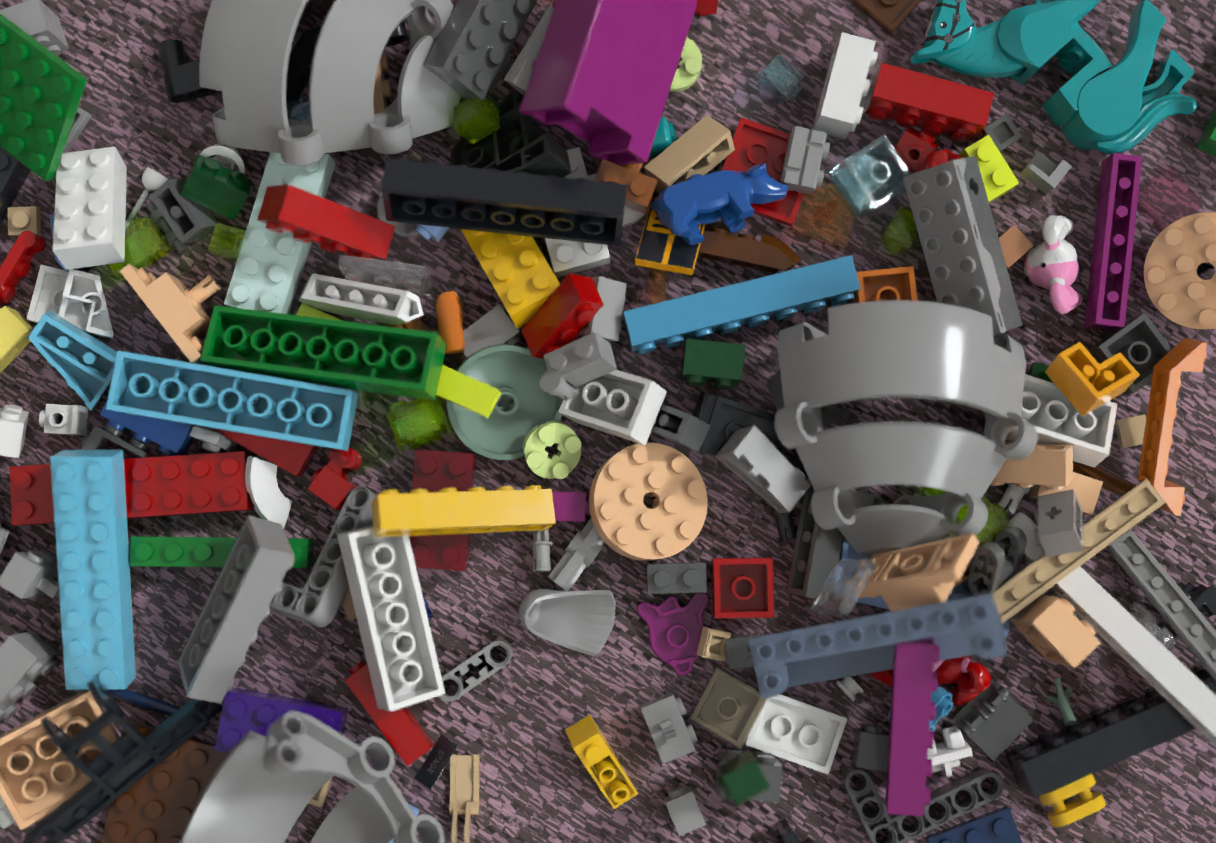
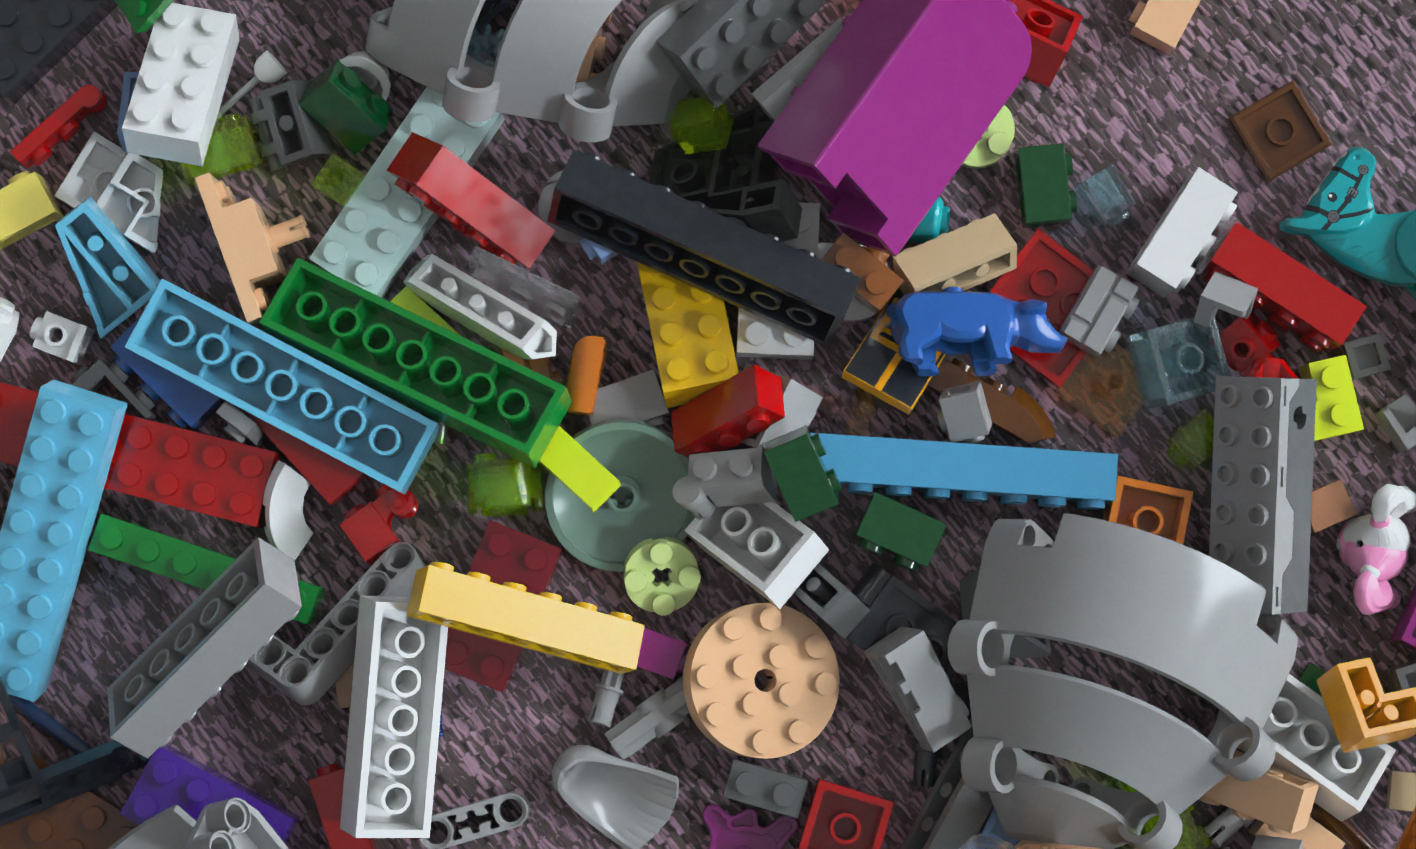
camera: 20 degrees right, 0 degrees up
(23, 219) = (89, 68): tan plate -> none
(629, 341) = (801, 472): none -> dark green brick
(732, 262) = (964, 413): none -> light grey brick
(735, 85) = (1044, 185): none -> dark green brick
(893, 118) = (1225, 294): none -> light grey panel

